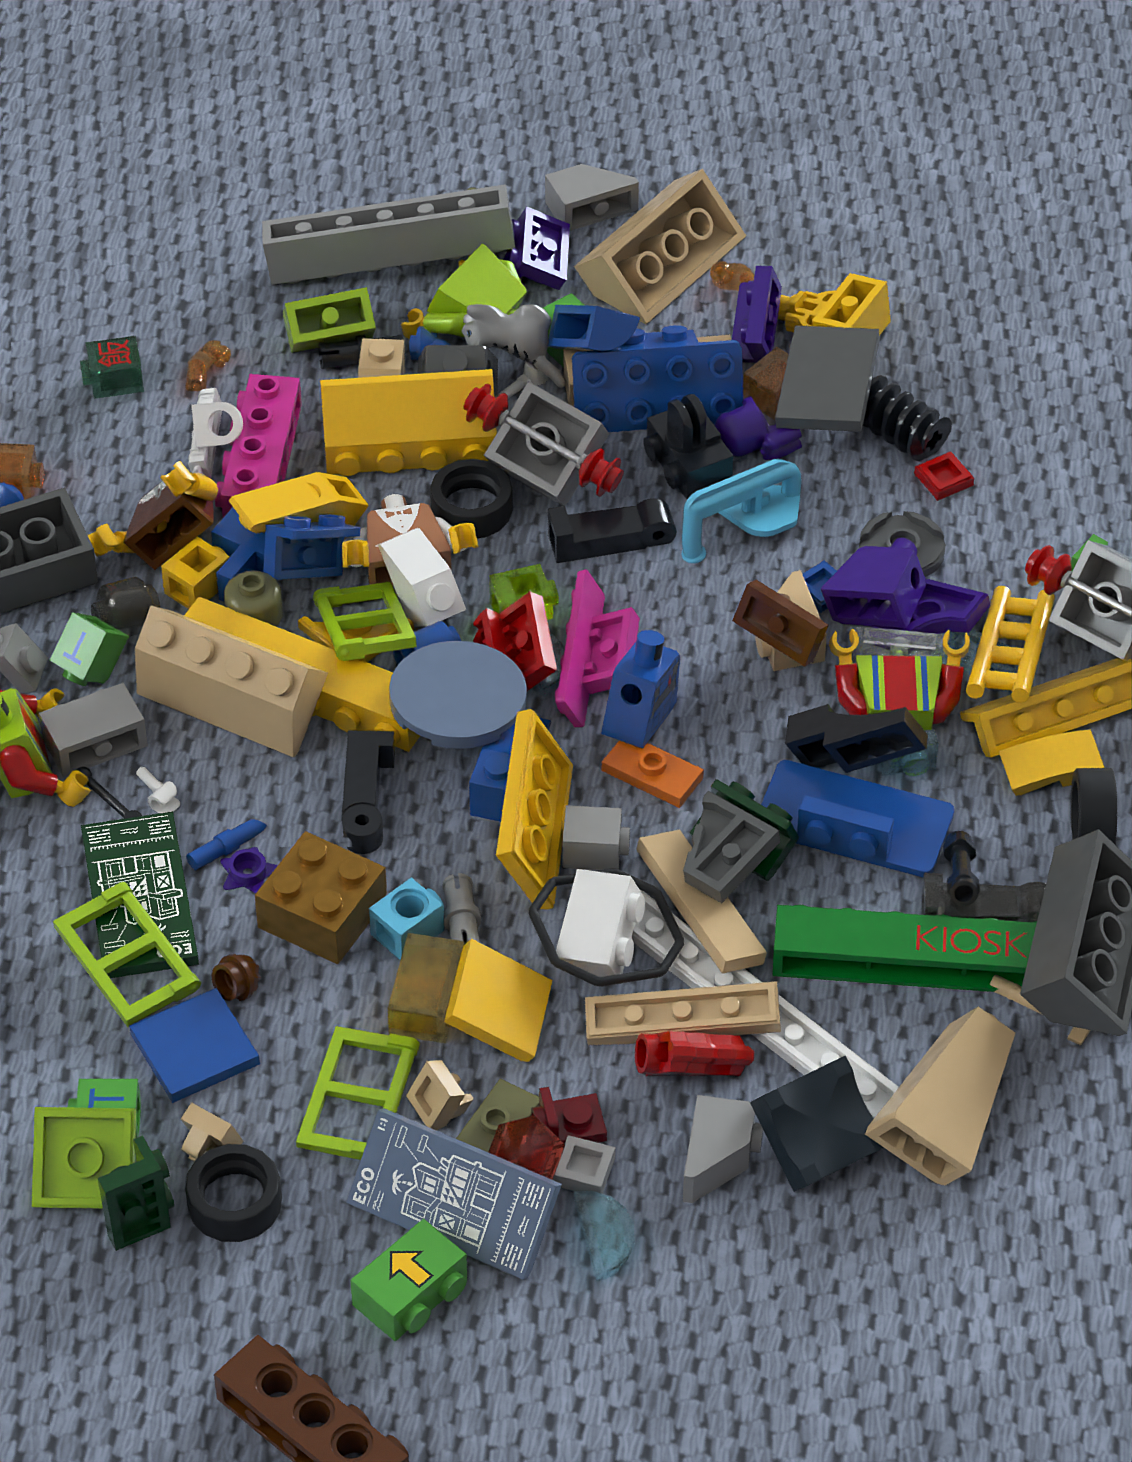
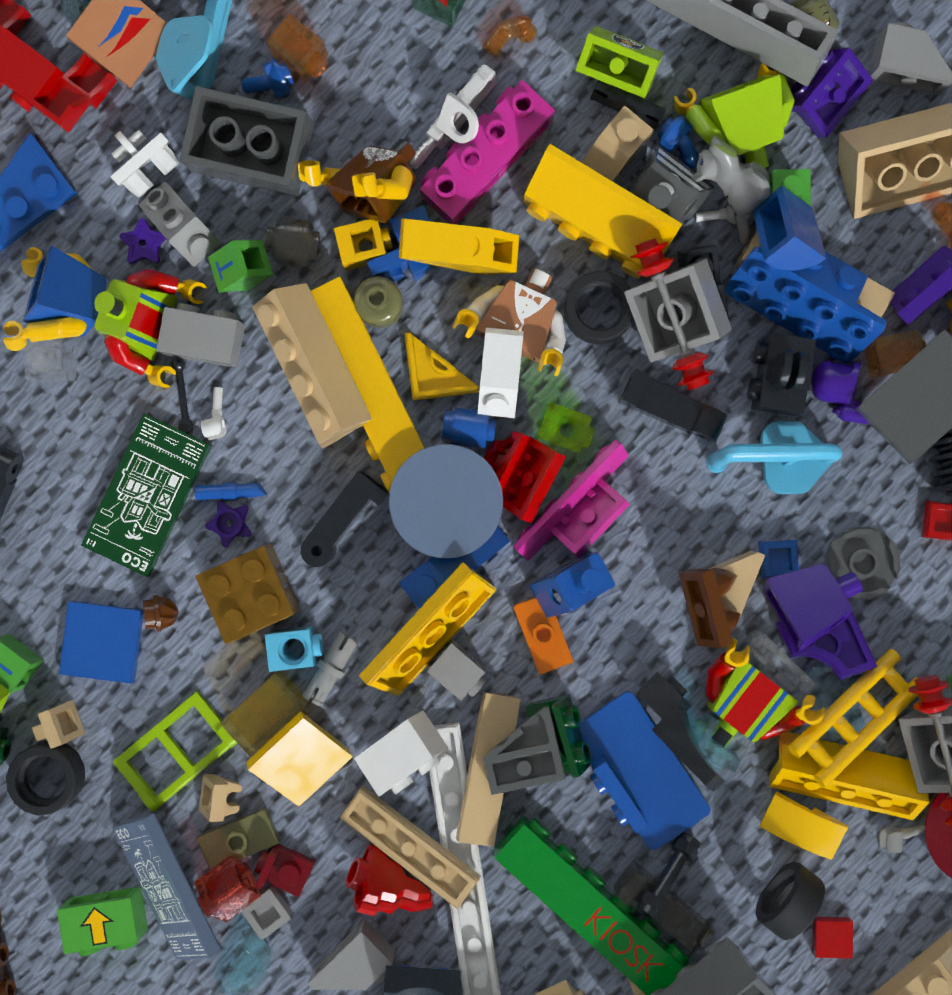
camera: 35 degrees right, 40 degrees up
(97, 969) = (73, 546): lime window -> none
(306, 547) = (442, 285): blue bracket -> none
(357, 648) = (409, 411): lime window -> none
(613, 979) = (357, 739): black piece -> none

